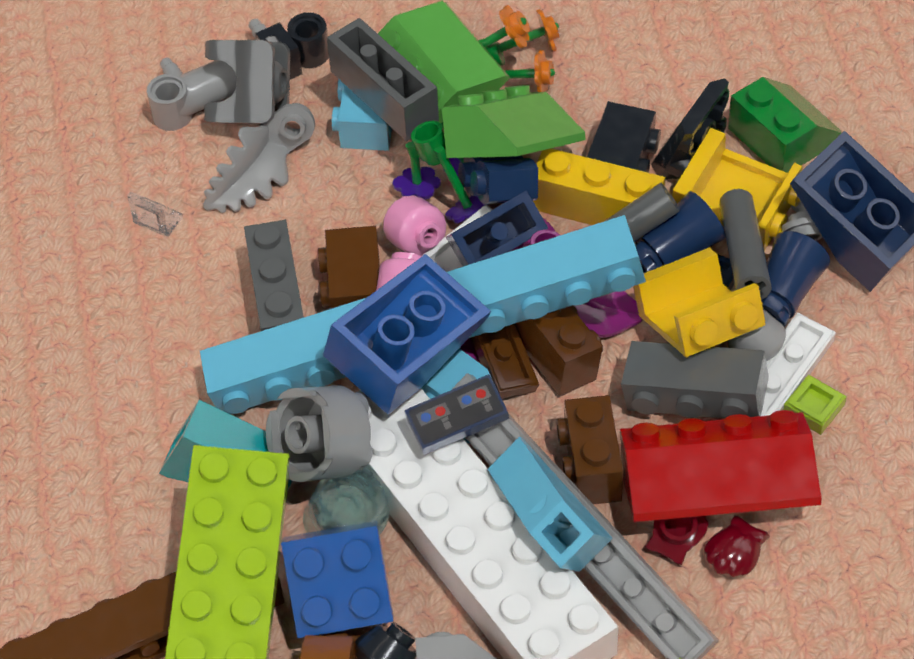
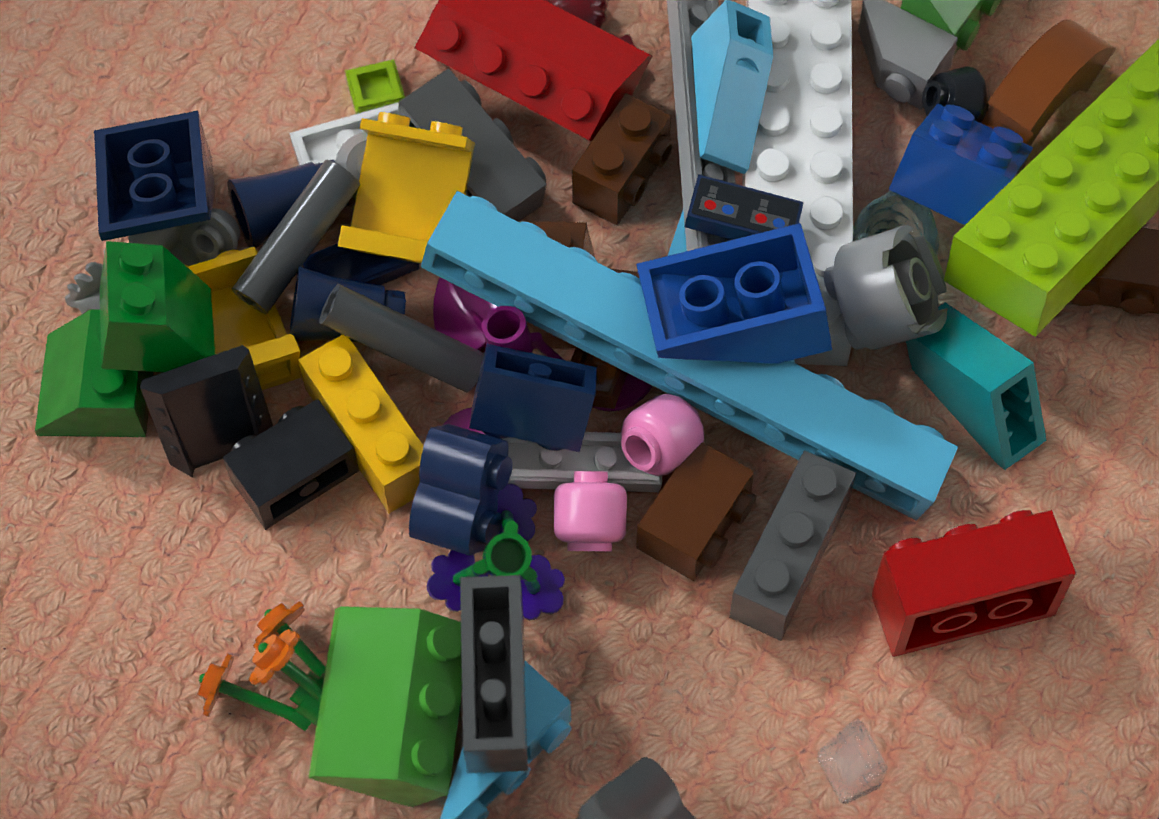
camera: 145 degrees left, 10 degrees up
(142, 319) = (972, 581): none -> red brick
(259, 159) = (682, 737): light grey plant -> none
(506, 124) = (405, 510): bright green slope -> none
(766, 127) = (152, 310): none -> green slope

